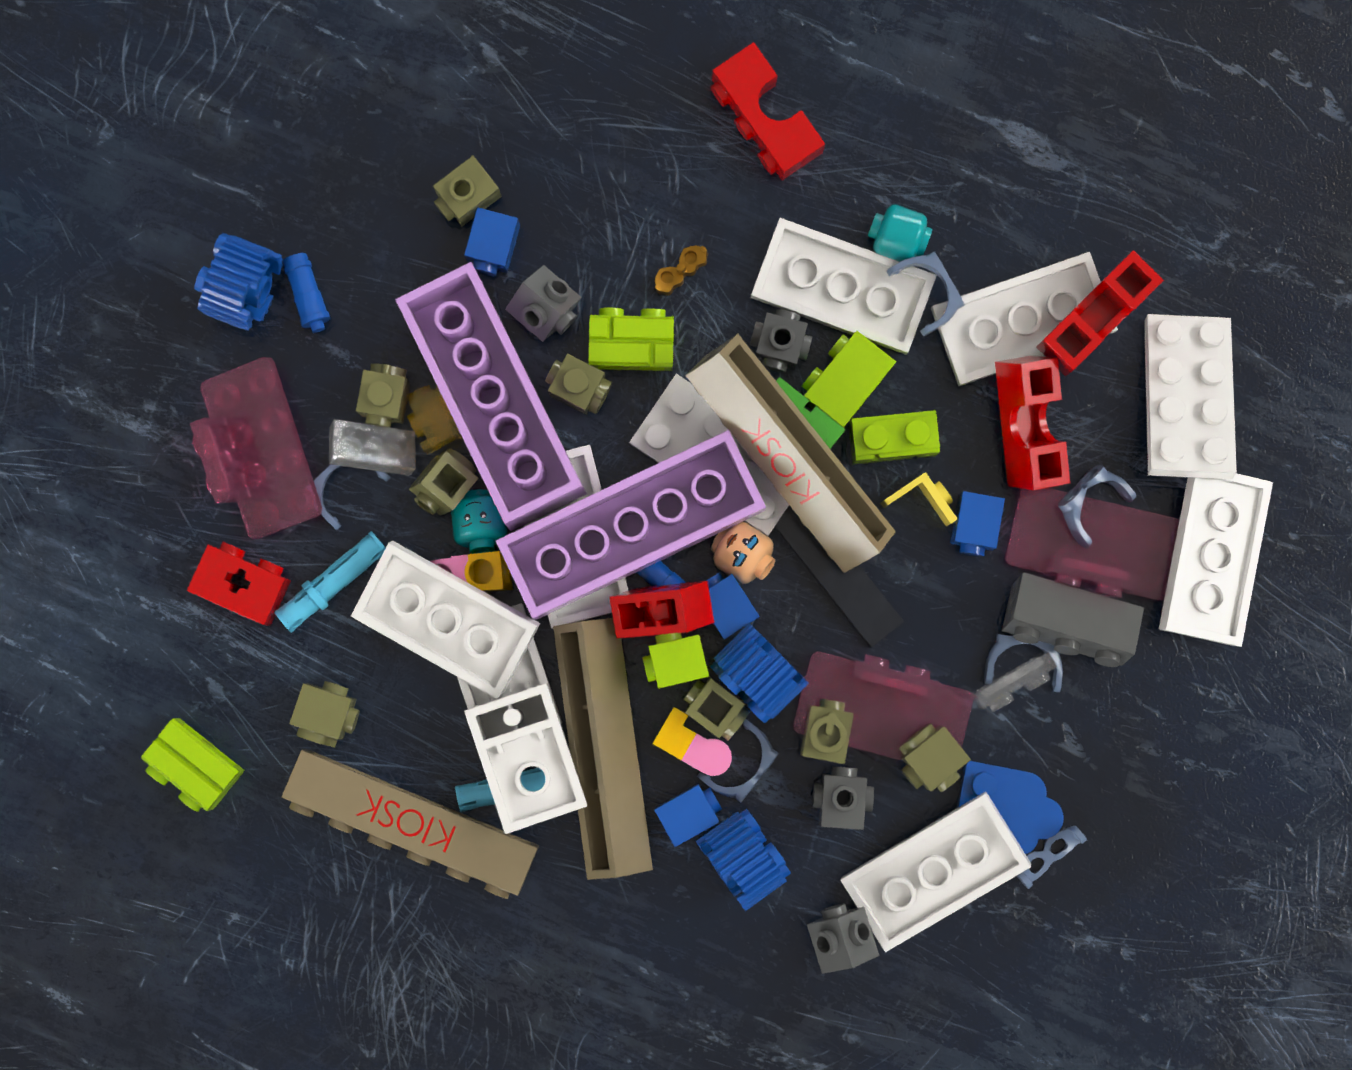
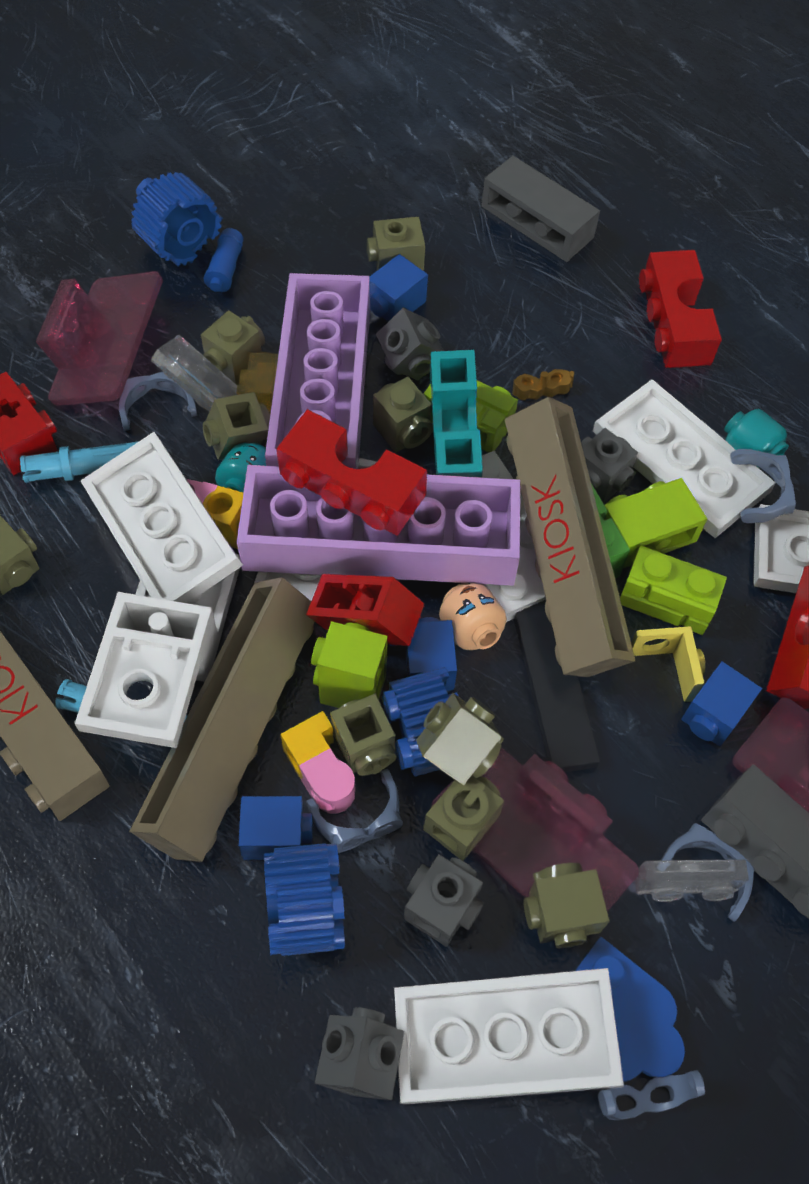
camera: 30 degrees right, 25 degrees down
(553, 516) = (379, 494): none -> red arch
(573, 53) = (540, 208): none -> dark grey brick
(640, 391) = (454, 414): none -> teal arch
(800, 691) = (460, 738): none -> brick

